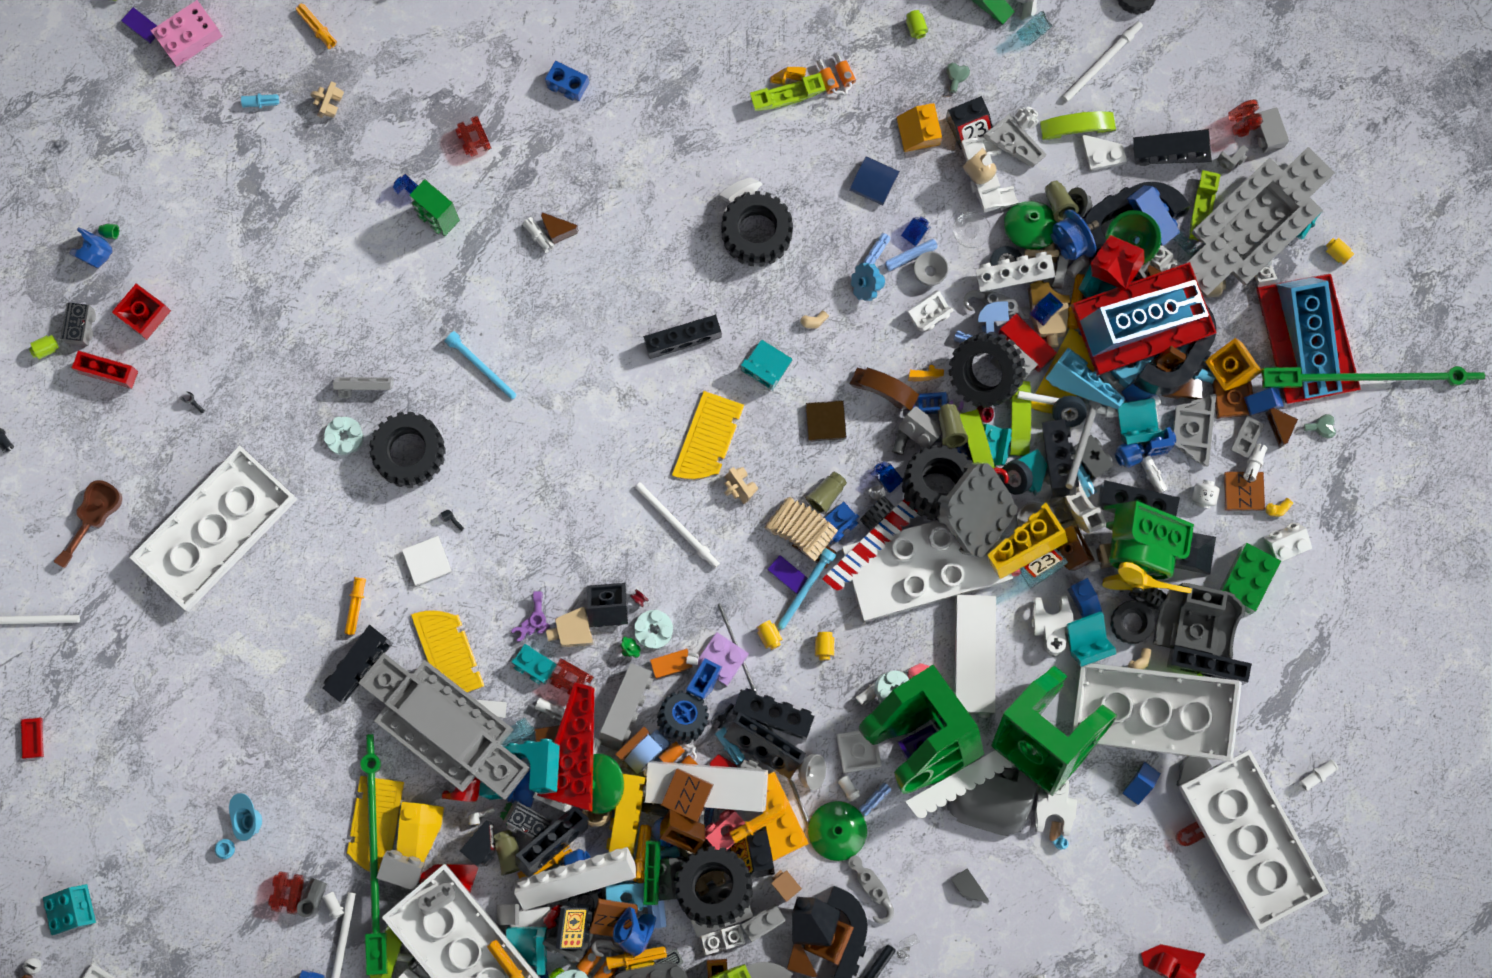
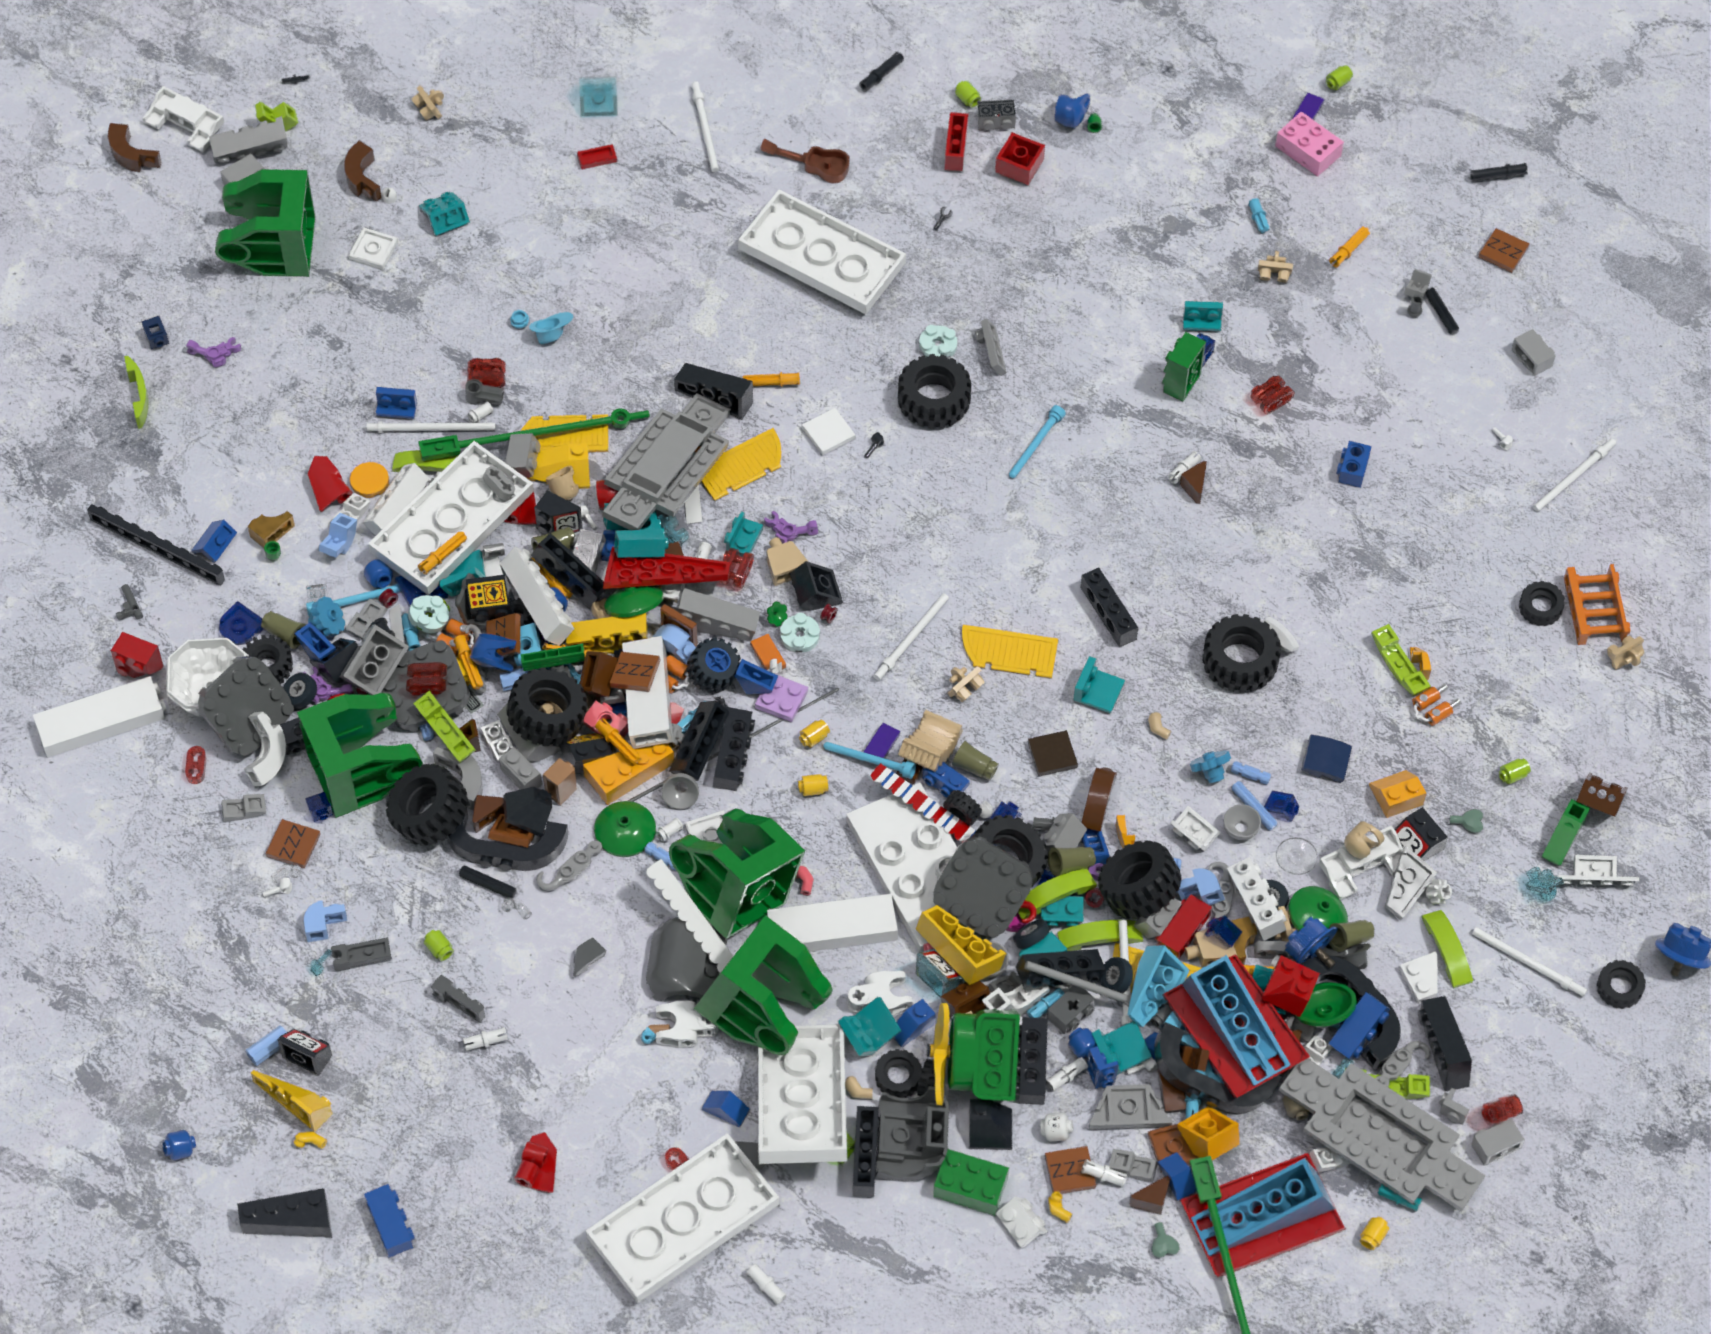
camera: 80 degrees right, 20 degrees down
(371, 179) = (1202, 316): none -> teal bracket
(448, 834) = (563, 485): none -> tan helmet
(1192, 196) = (1399, 1062): none -> light grey piece

